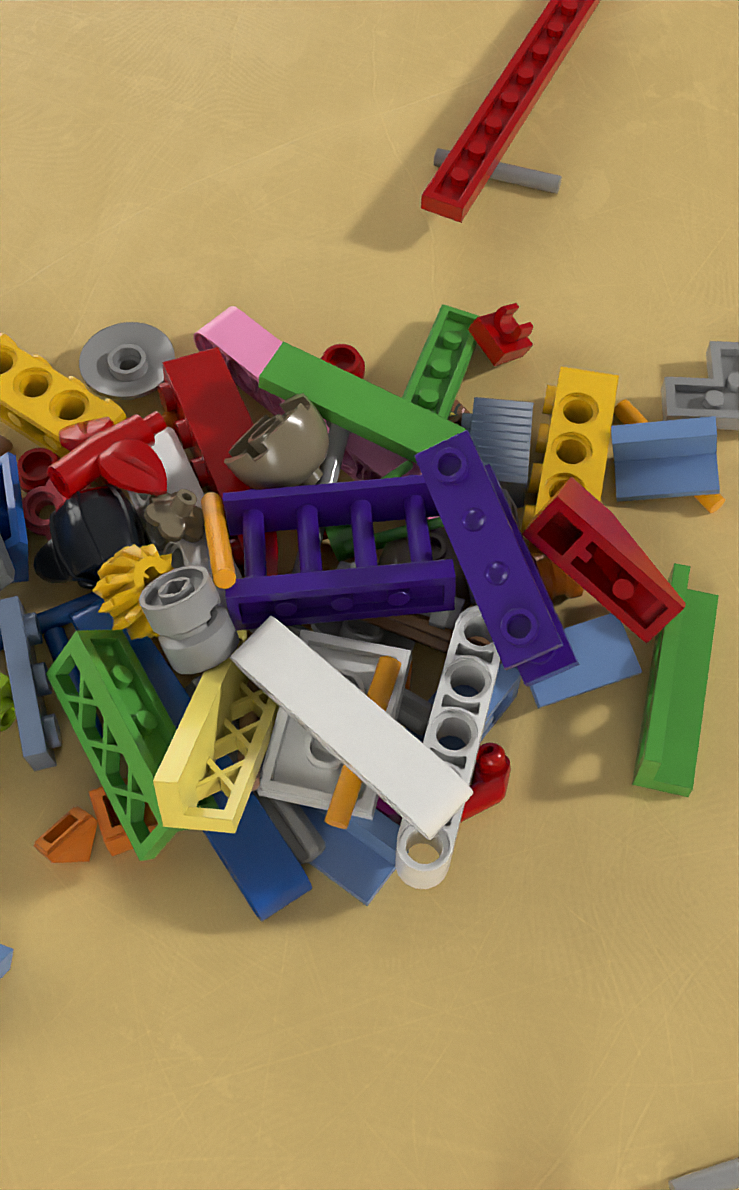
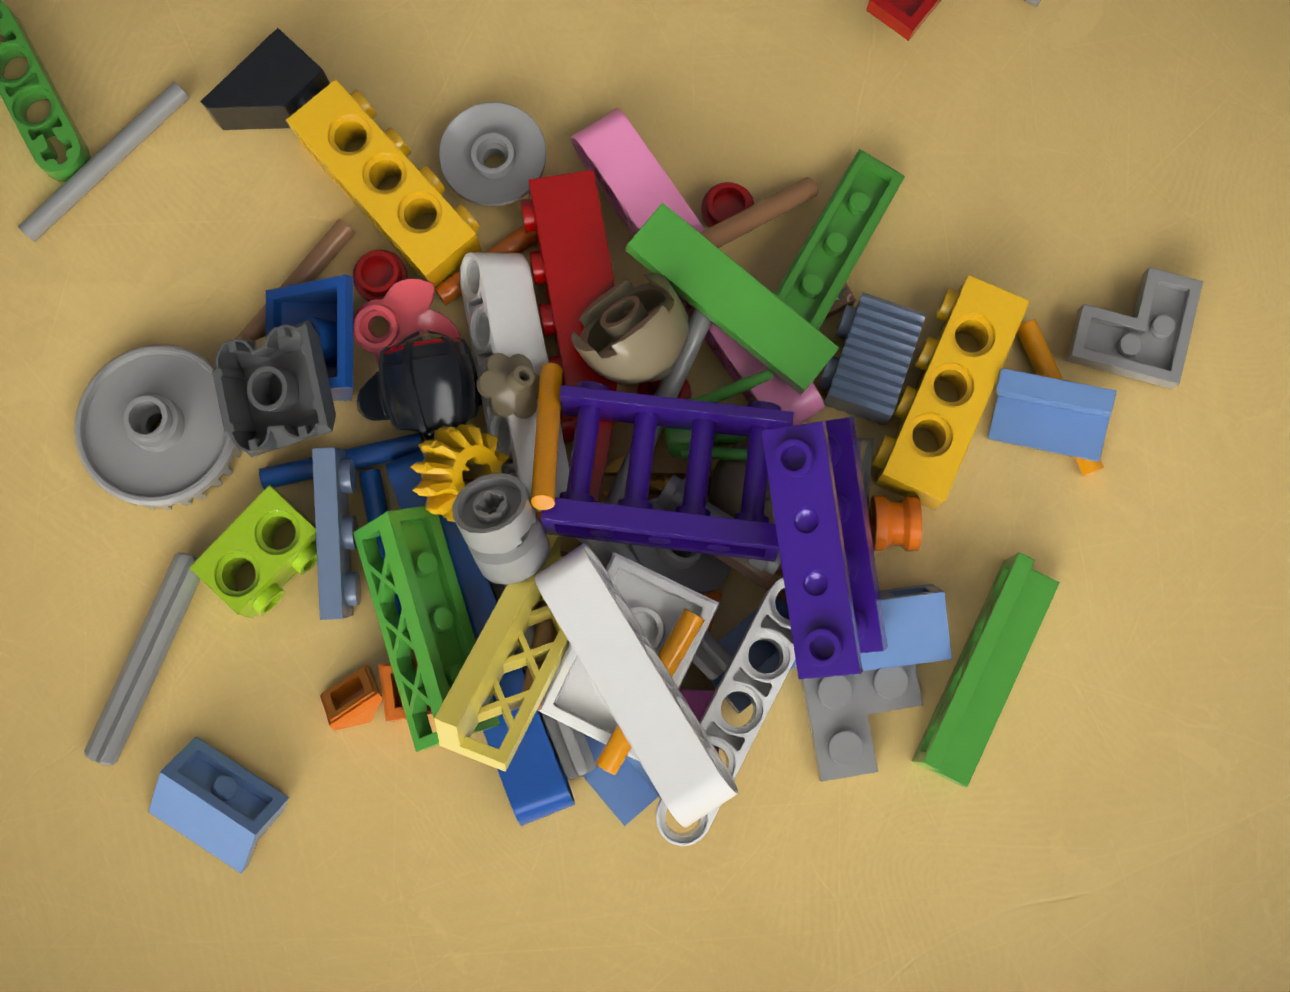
camera: 15 degrees right, 20 degrees up
(112, 450) = (453, 301): red plant -> none
(378, 355) = (761, 212): none -> medium nougat bar
(489, 779) = (773, 731): red arm -> none
(501, 335) = (915, 208): red tile -> none
(551, 745) = (840, 712): none -> light grey plate
(604, 560) = (940, 534): red slope -> none

